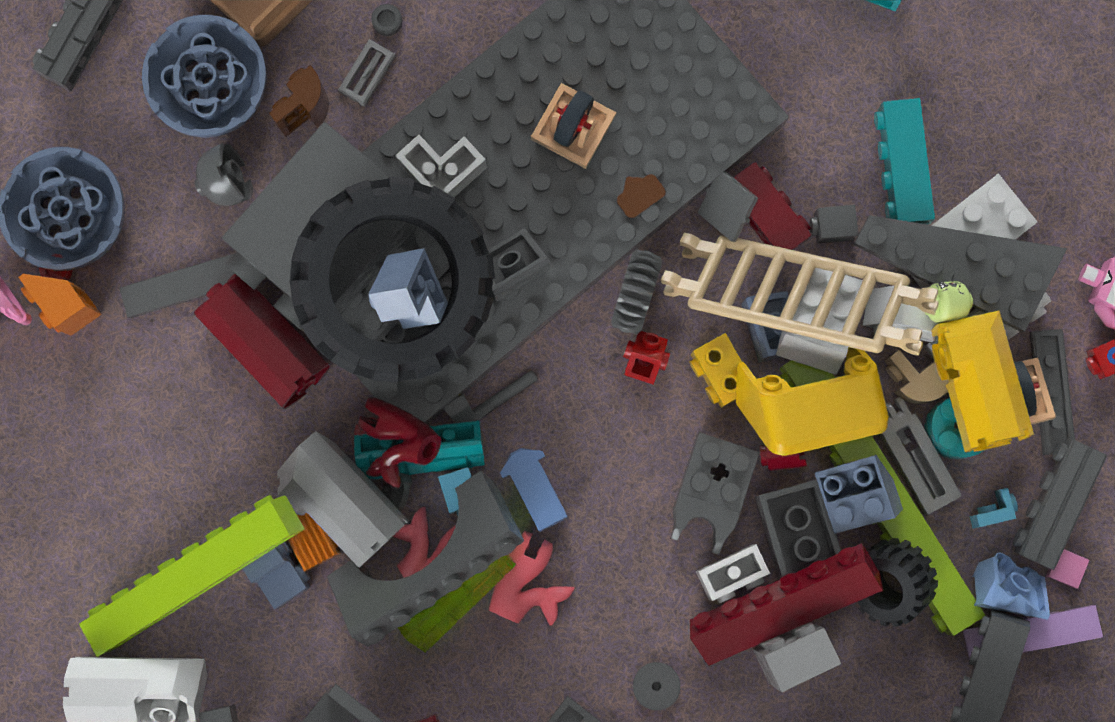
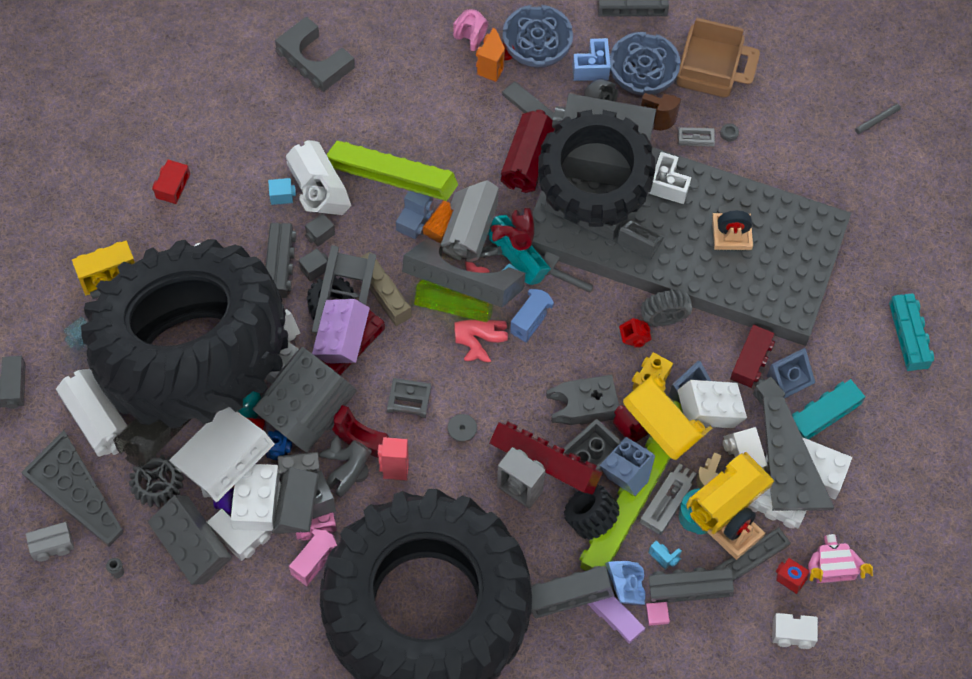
camera: 60 degrees right, 20 degrees down
(163, 150) = (594, 64): none -> light blue brick
(378, 683) = (388, 295): none -> dark tan brick
(408, 290) = (597, 168): sand blue brick -> none
(640, 194) = (718, 282): reddish brown sticker -> none
(727, 205) = (741, 330): dark grey piece -> none
(733, 572) = (547, 428): white brick -> none
(823, 174) = (792, 372): none -> sand blue slope
(885, 334) = (723, 419): tan bar -> none
(953, 301) = (762, 453): yellowish green head -> none

